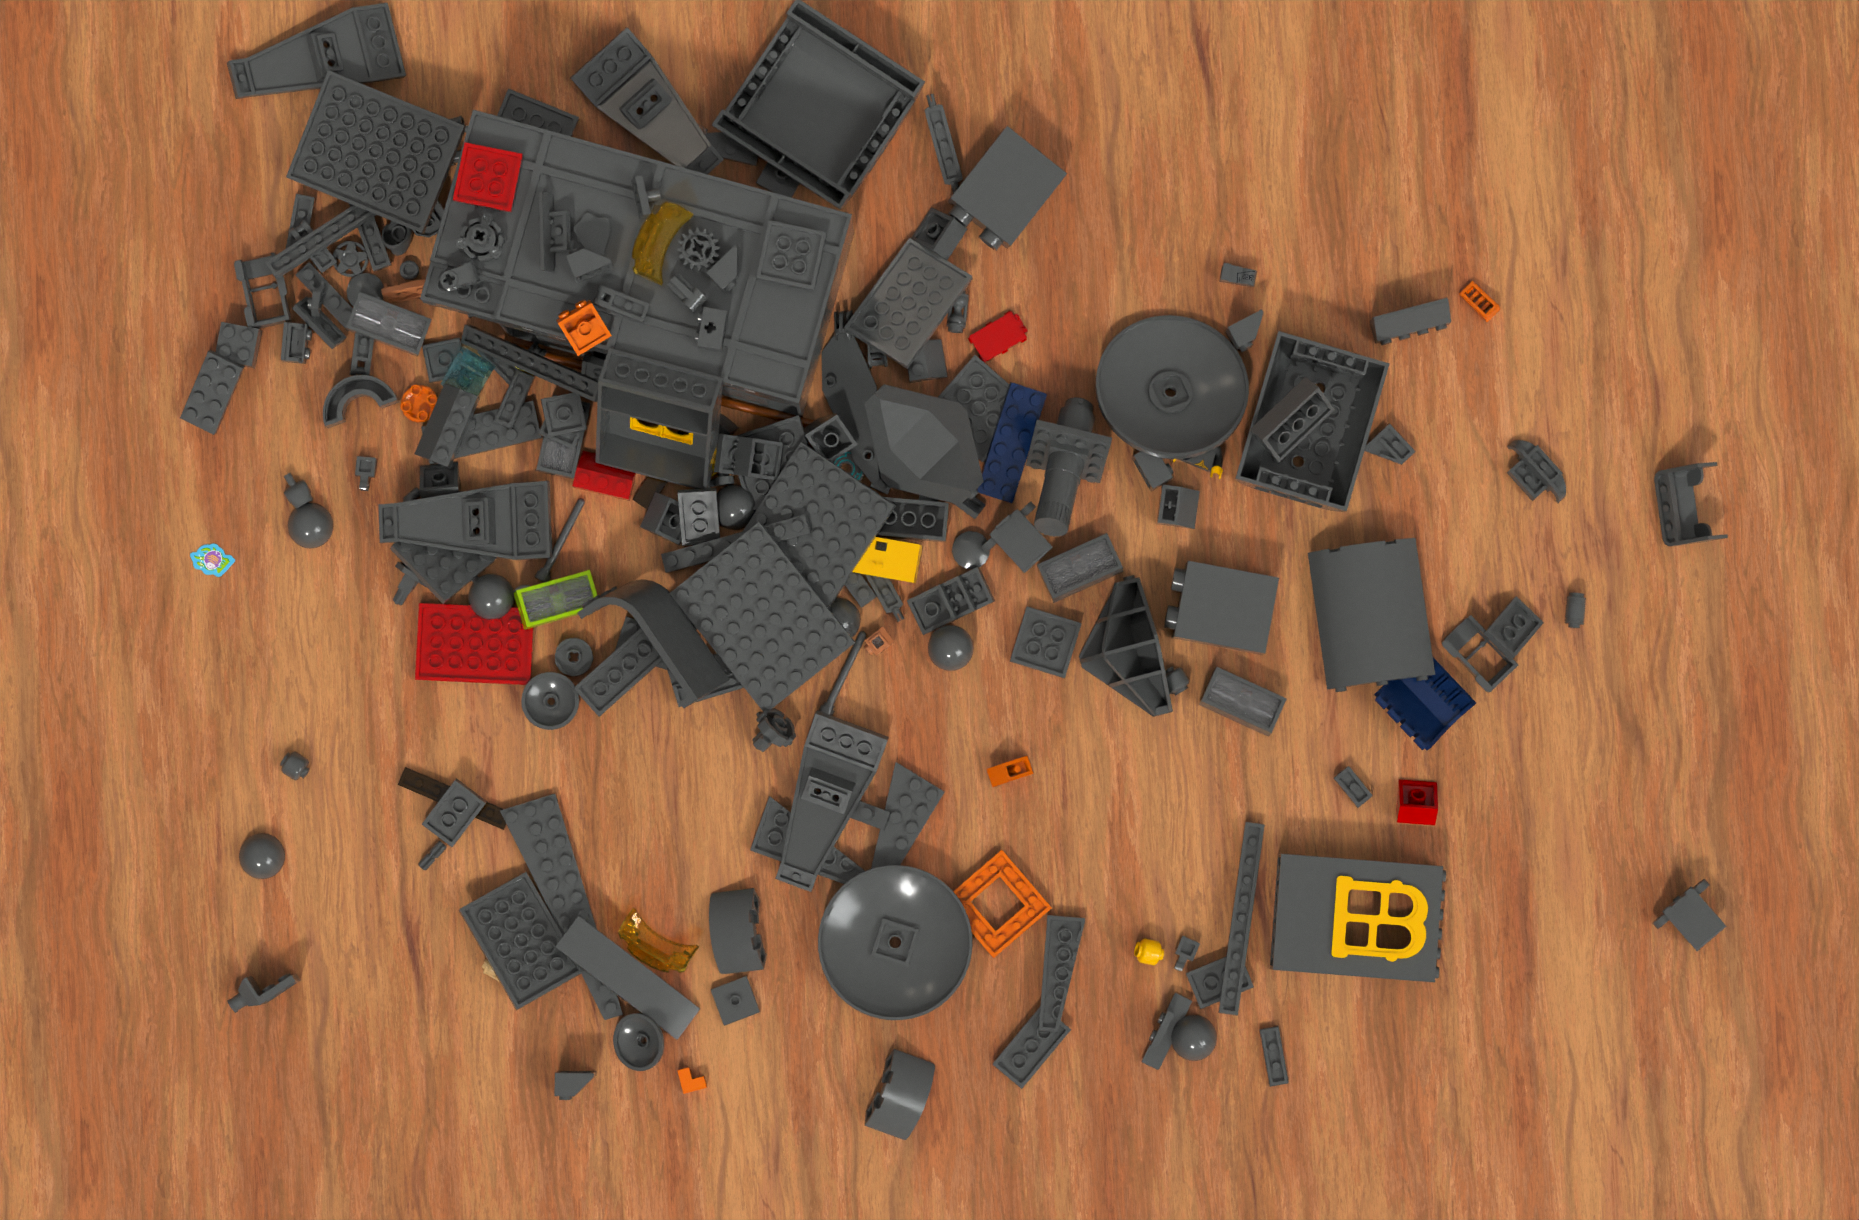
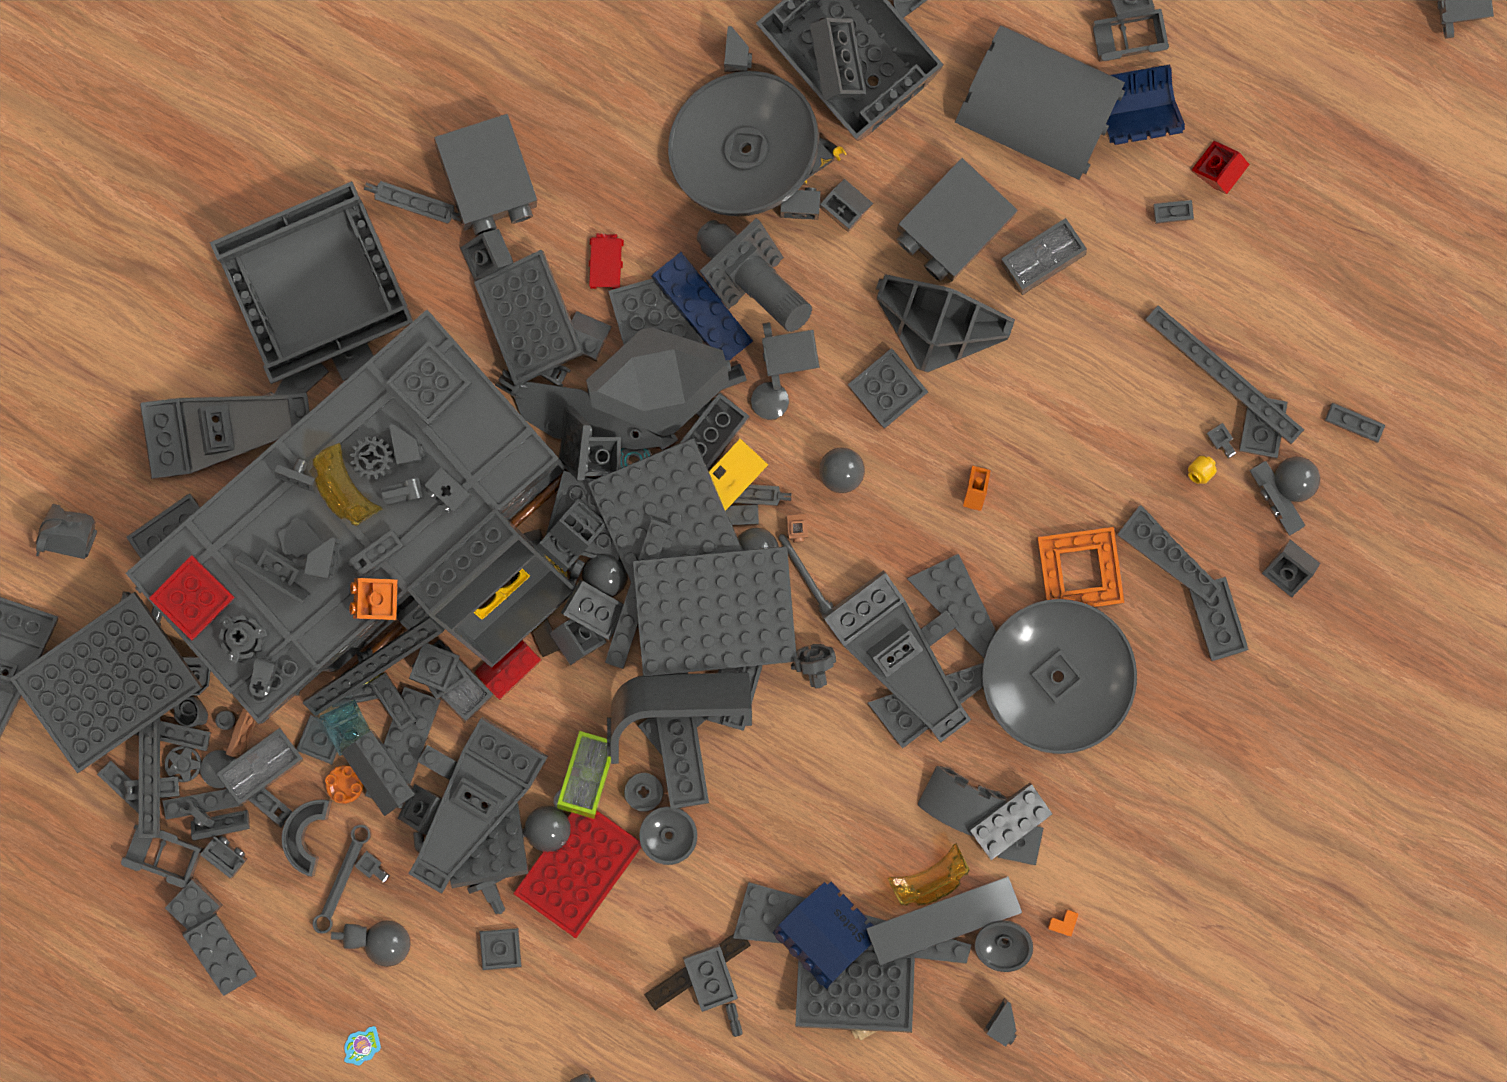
camera: 60 degrees left, 0 degrees up
(340, 452) = (341, 879): none -> dark grey piece
(366, 622) = (500, 949): none -> dark grey tile
(479, 37) = (66, 533): none -> dark grey piece
(487, 469) = (438, 762): none -> dark grey slope
(544, 573) = (557, 771): dark grey piece -> none
(552, 884) = (825, 933): none -> dark blue hinge
(746, 979) = (1010, 821): none -> plate
(827, 409) = (575, 443): none -> dark grey plate
(903, 1095) = (1190, 752): dark grey panel -> none
(950, 600) = (801, 445): dark grey slope -> none
(956, 321) = (570, 288): dark grey piece -> none
(1080, 568) = (844, 319): clear brick -> none
(1114, 1081) = (1291, 568): none -> dark grey slope
(1176, 680) = (991, 298): dark grey head -> none
(1237, 275) = (684, 30): dark grey leg -> none
(1314, 915) = (1260, 312): dark grey panel -> none

